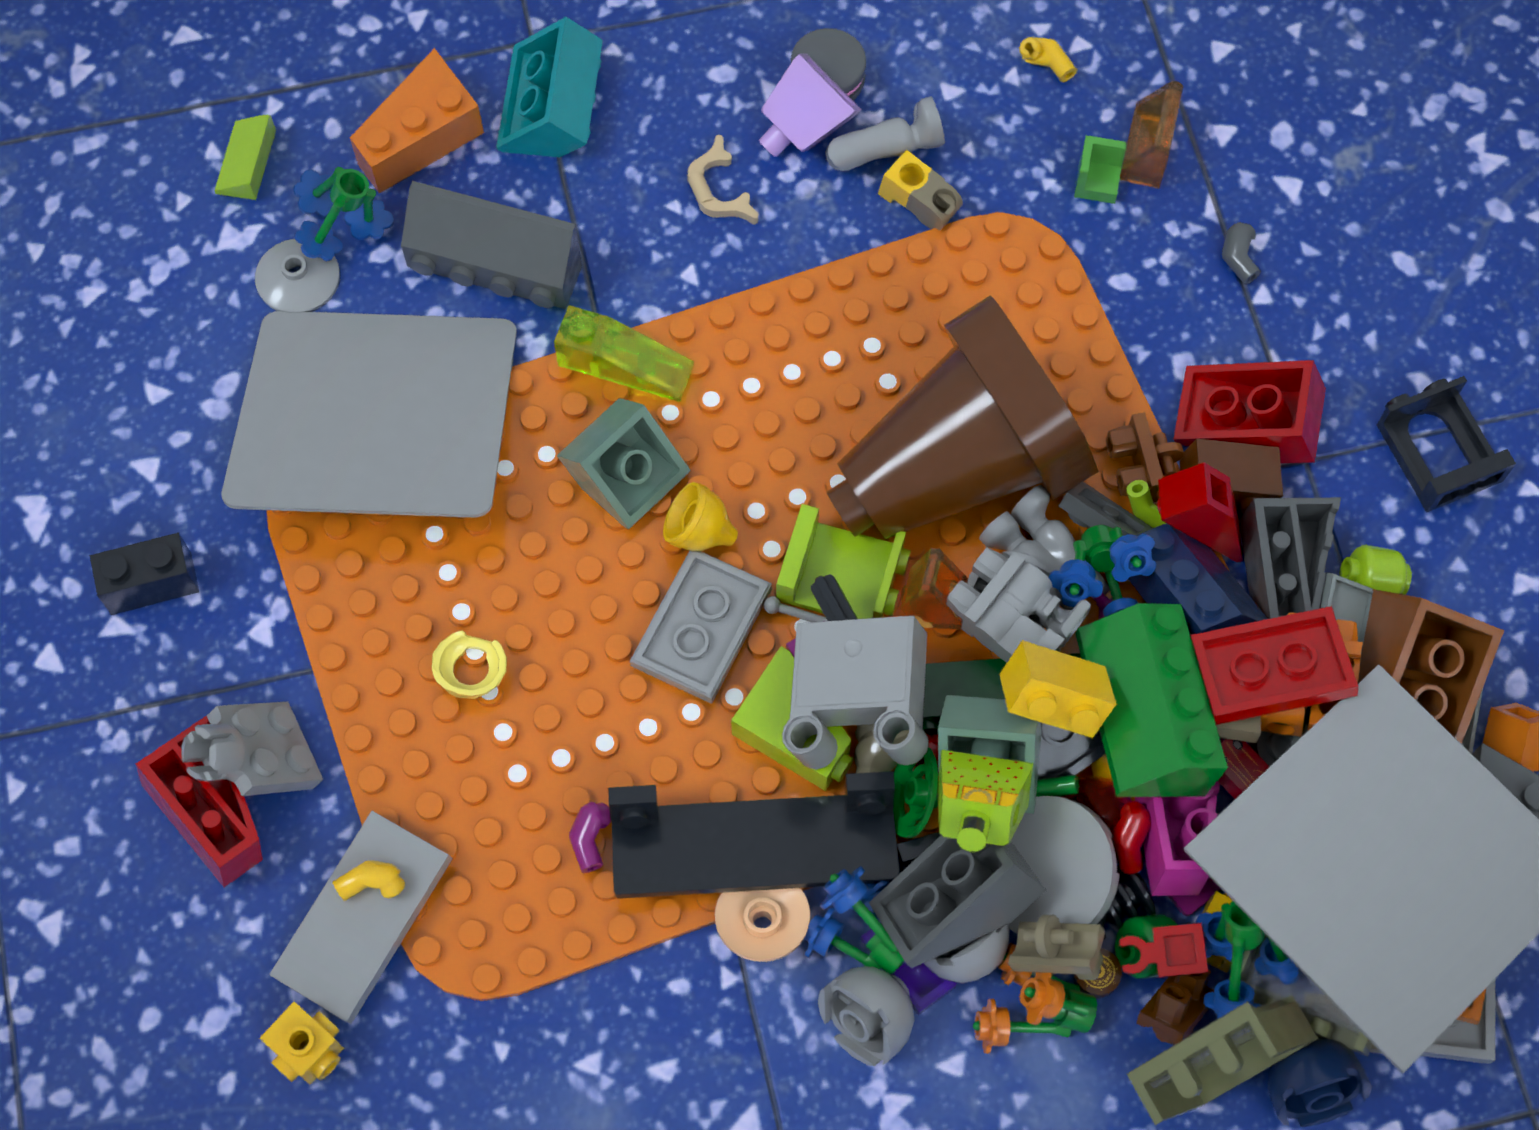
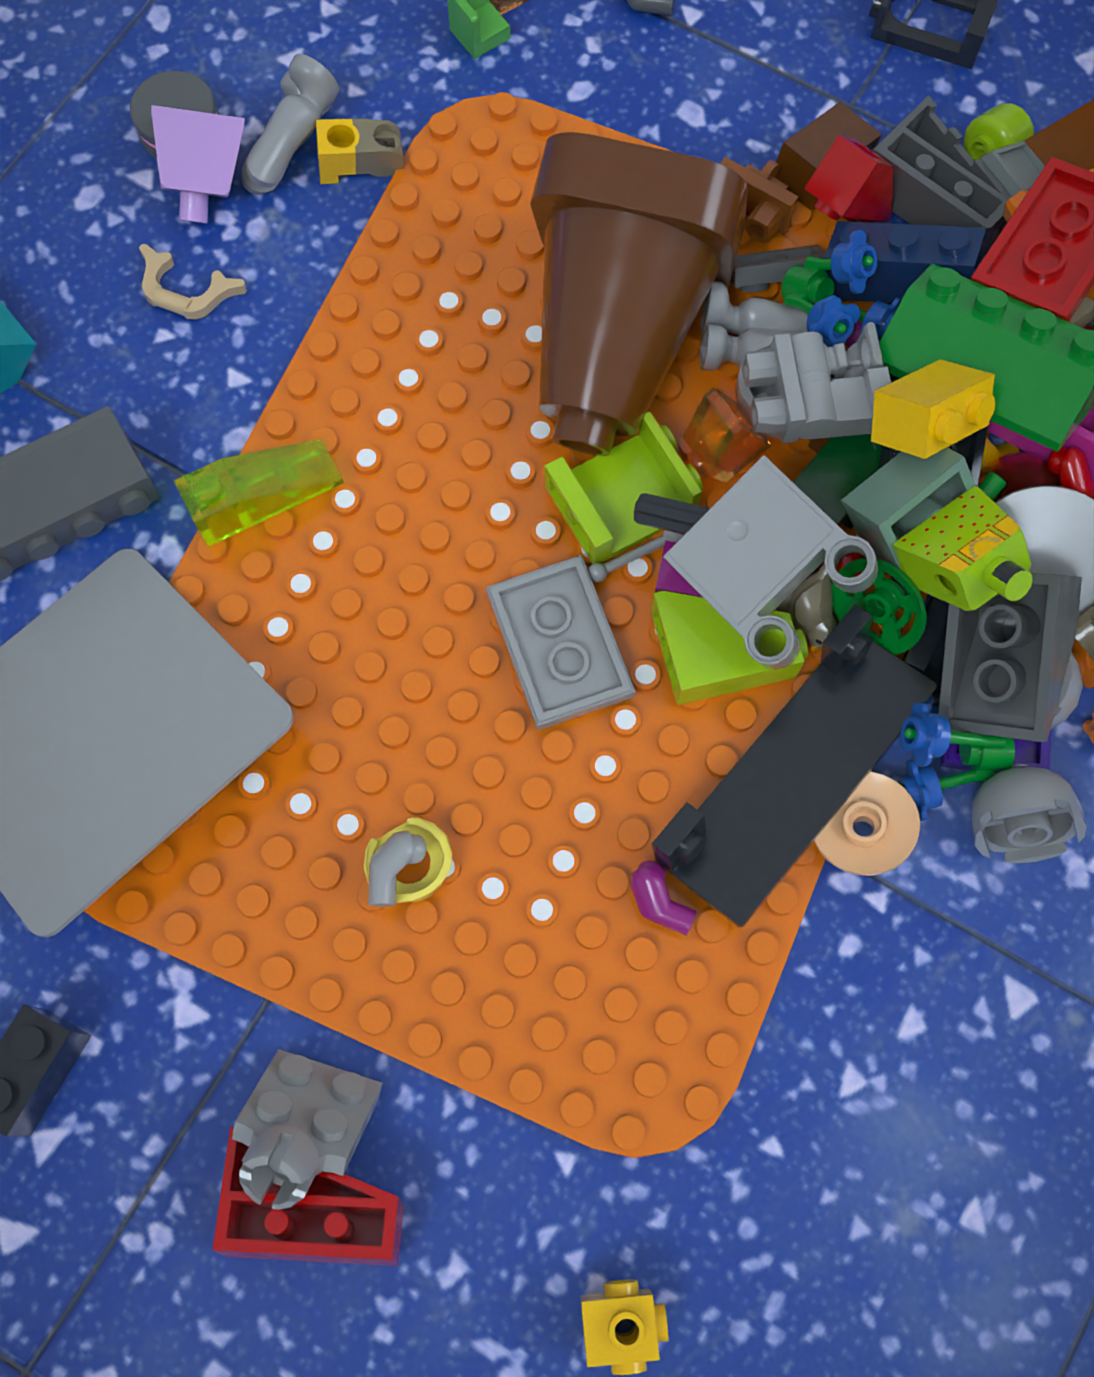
camera: 45 degrees left, 5 degrees up
(350, 942) = (546, 1166): light grey tile -> none
(372, 875) = (527, 1121): yellow arm -> none
(452, 651) = (388, 861): none -> light grey arm
(624, 461) = (355, 569): sand green slope -> none
(698, 520) = (468, 559): yellow helmet -> none
(1142, 503) = (799, 234): lime arm -> none
(1254, 405) = (782, 92): red slope -> none

